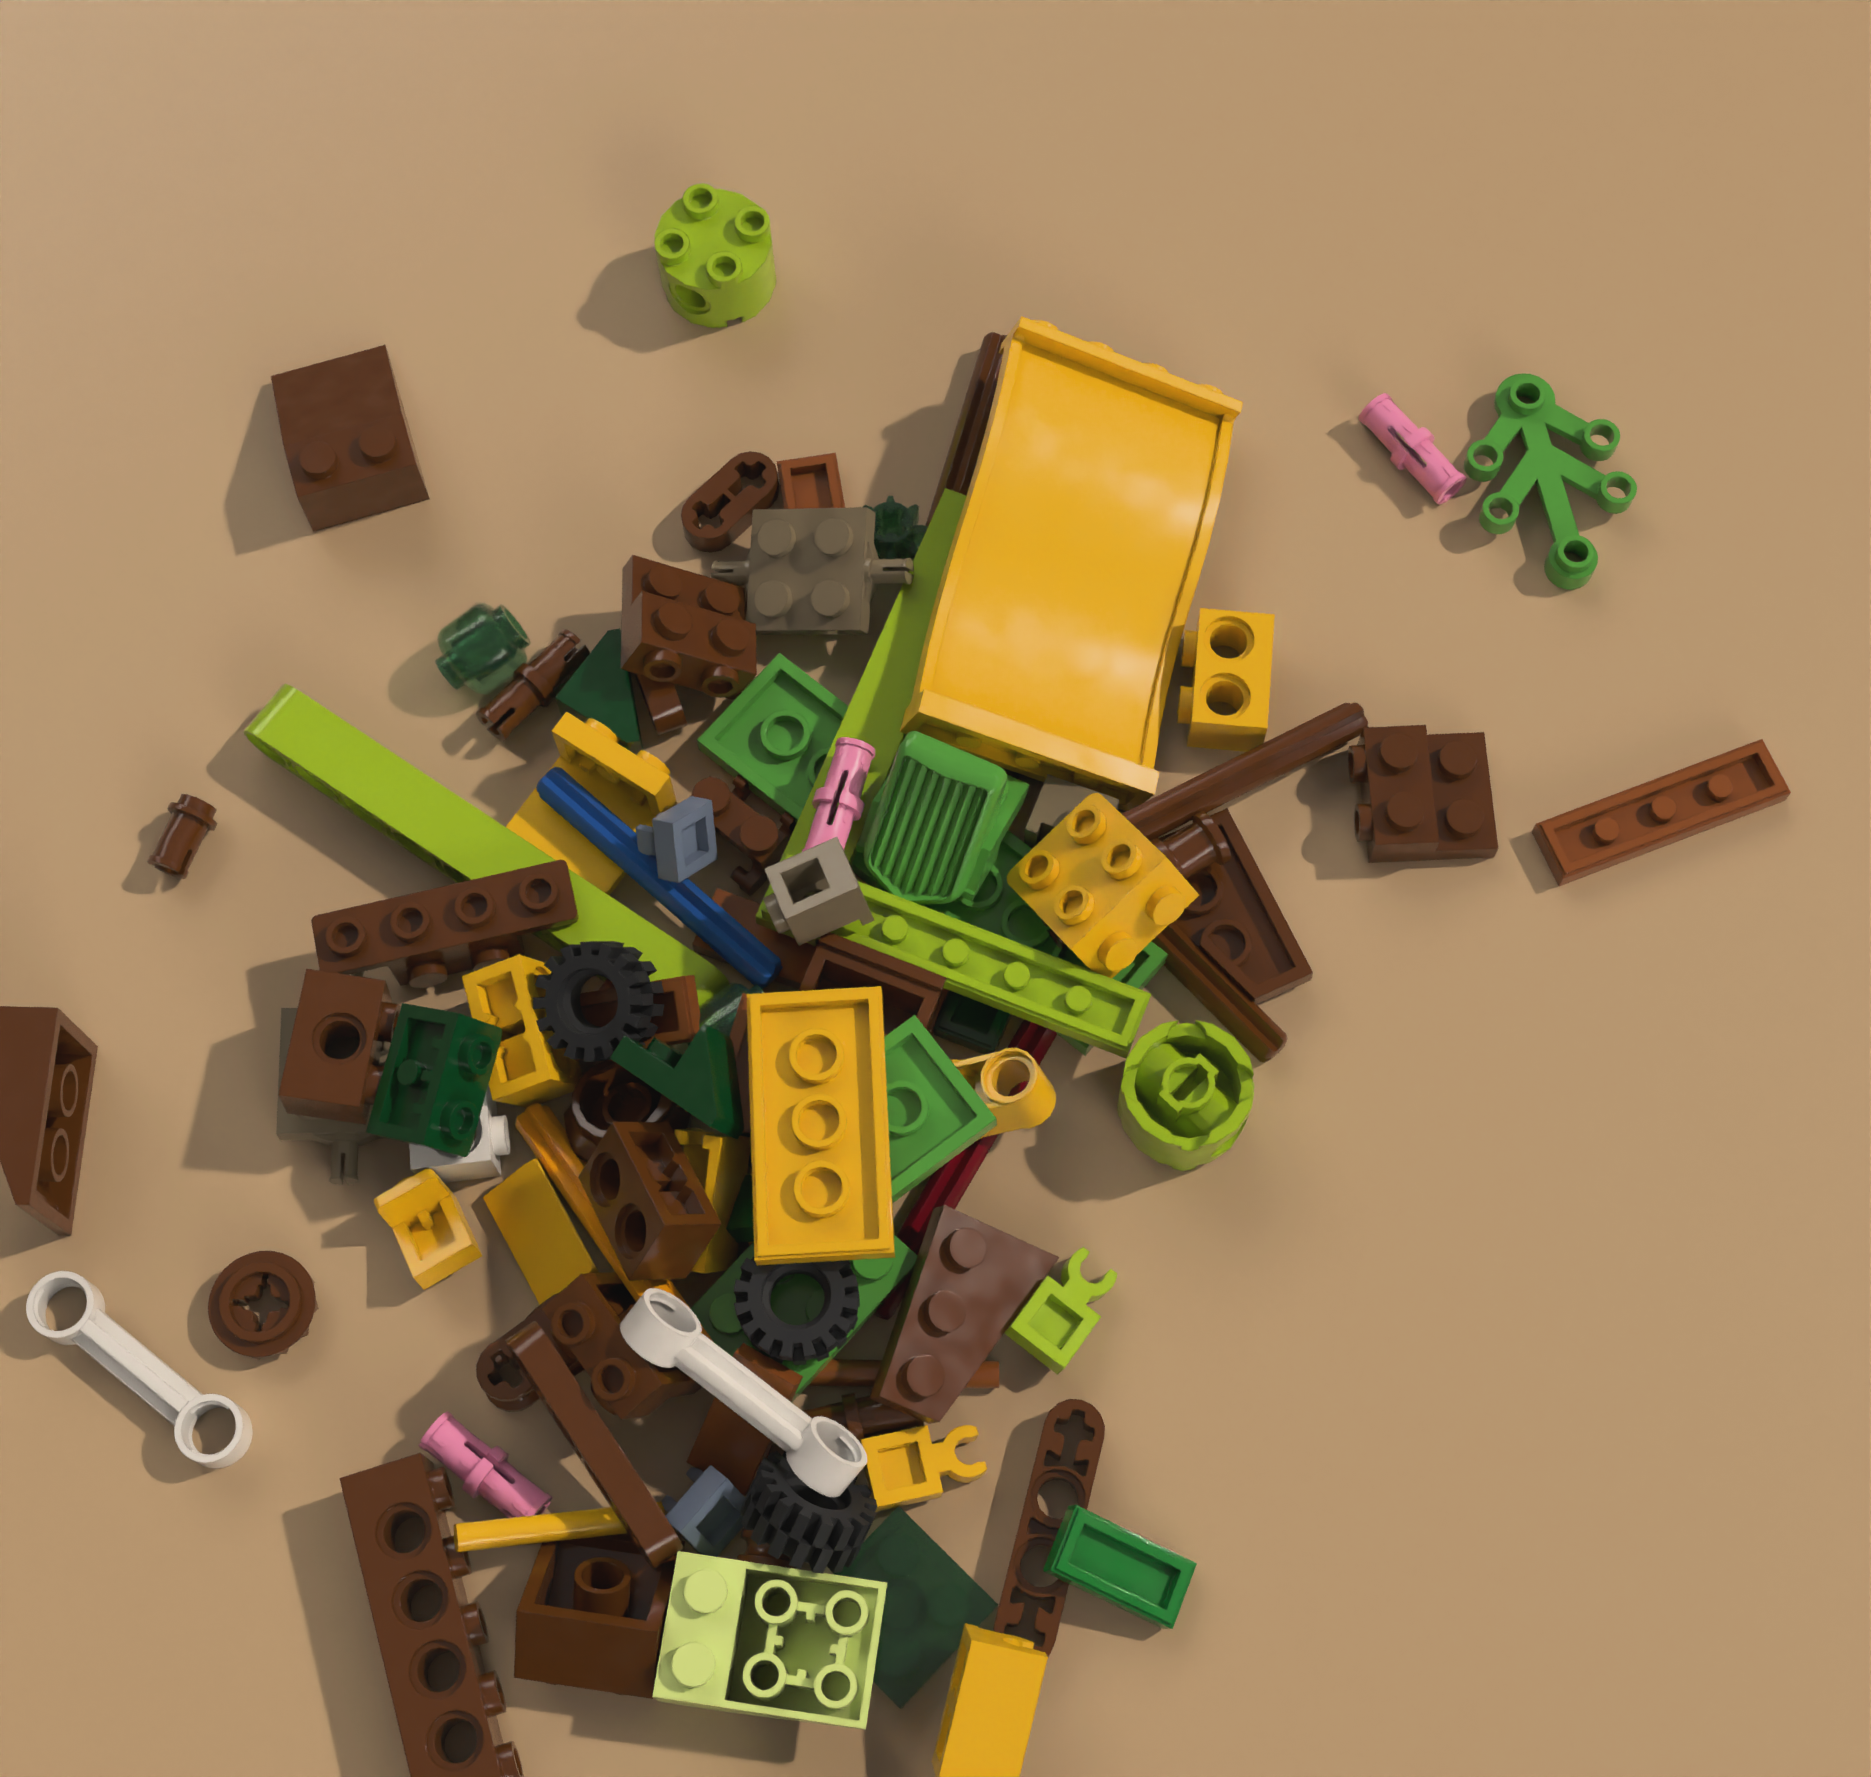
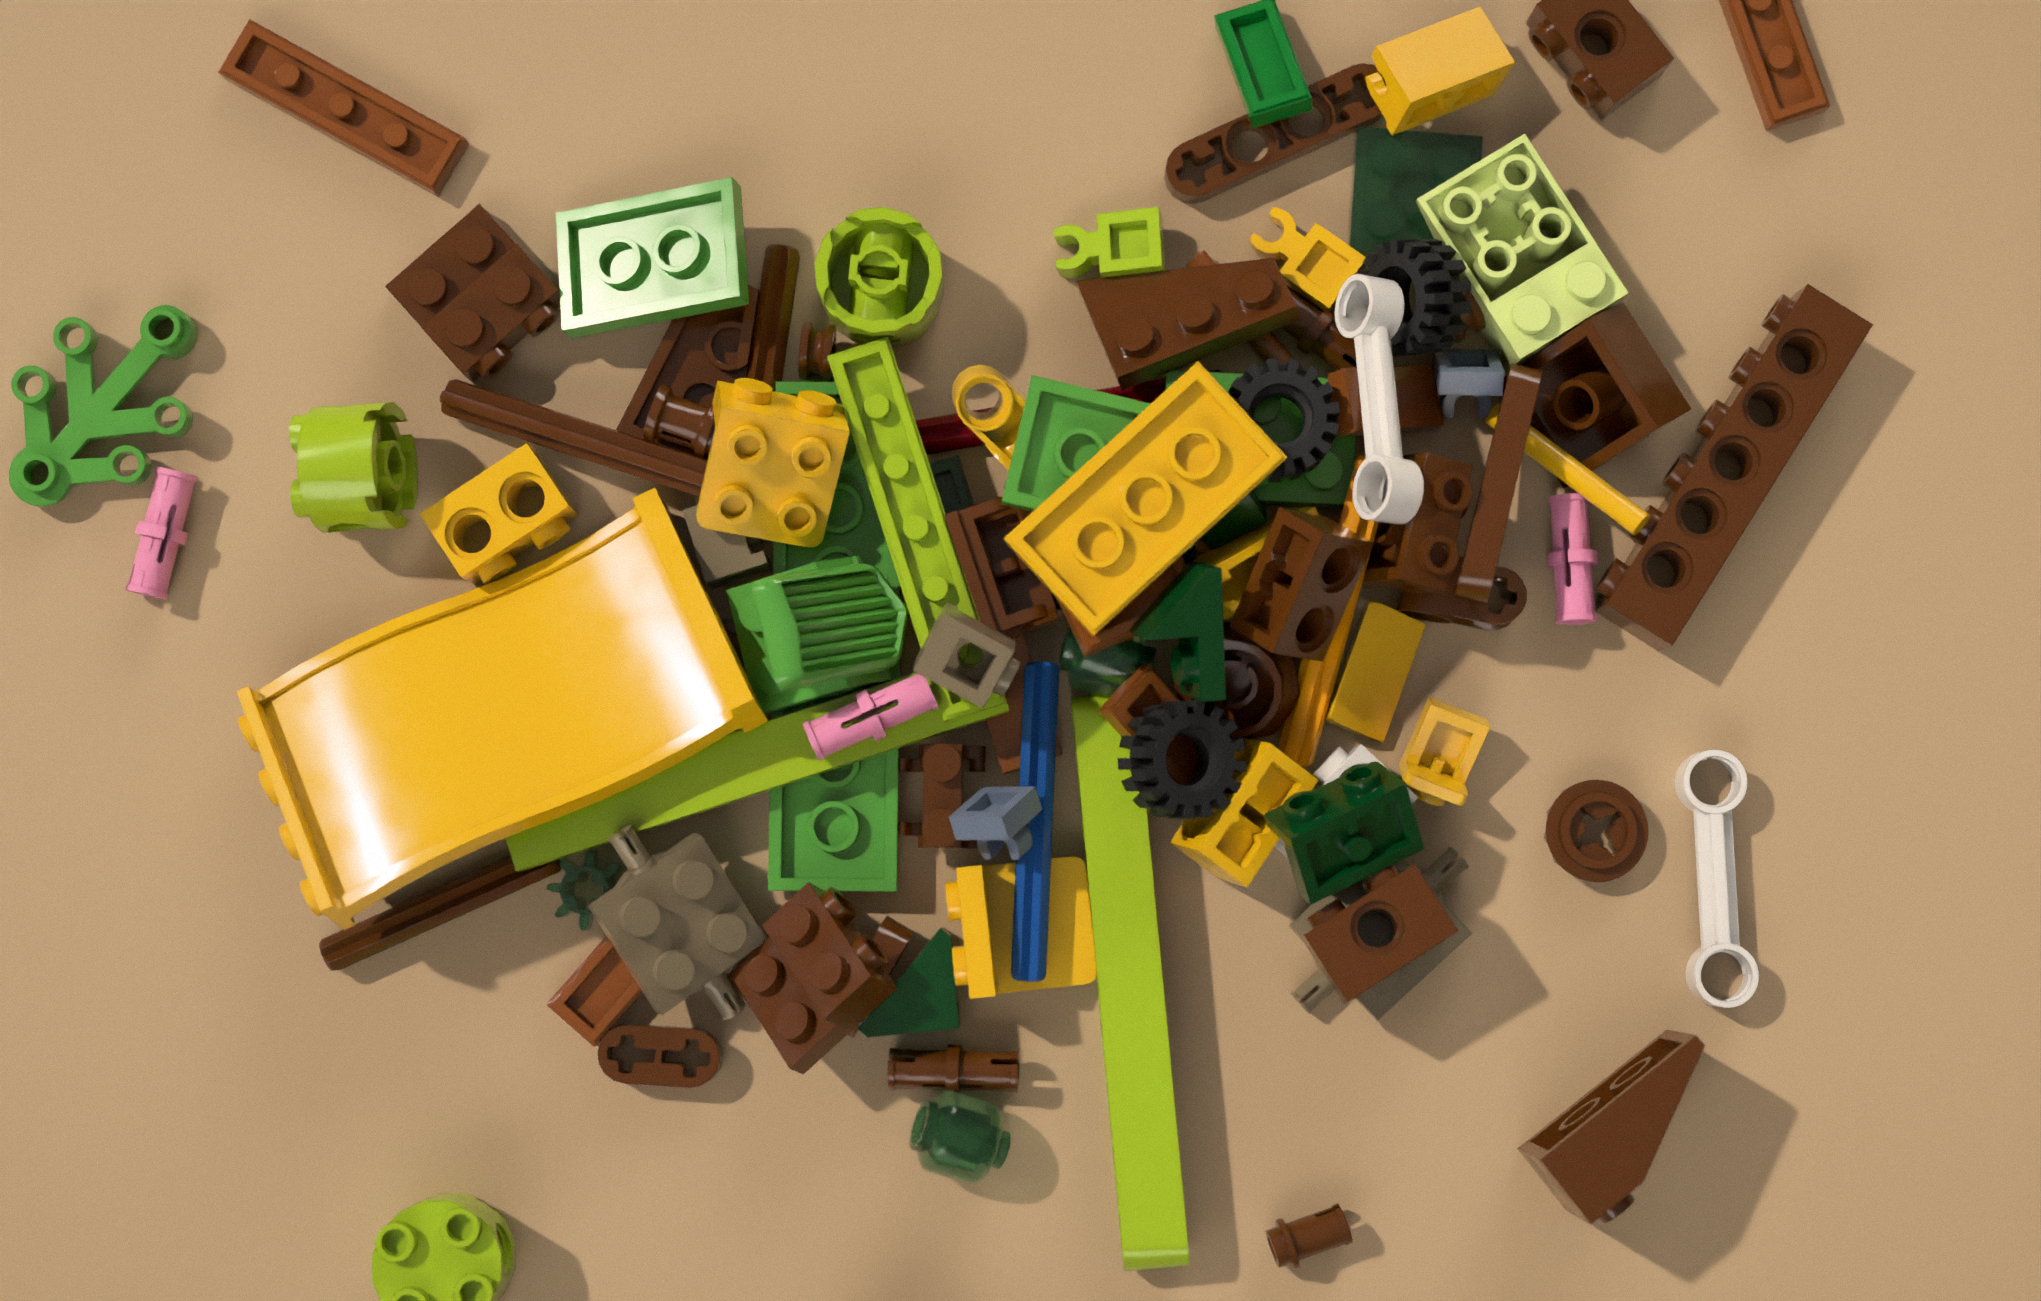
camera: 130 degrees left, 15 degrees up
(447, 926) = (1211, 946): reddish brown bracket -> none
(1169, 1003) = (814, 349): none -> reddish brown bush
(1344, 934) = (652, 258): none -> plate
(1349, 598) = (353, 467): none -> lime brick

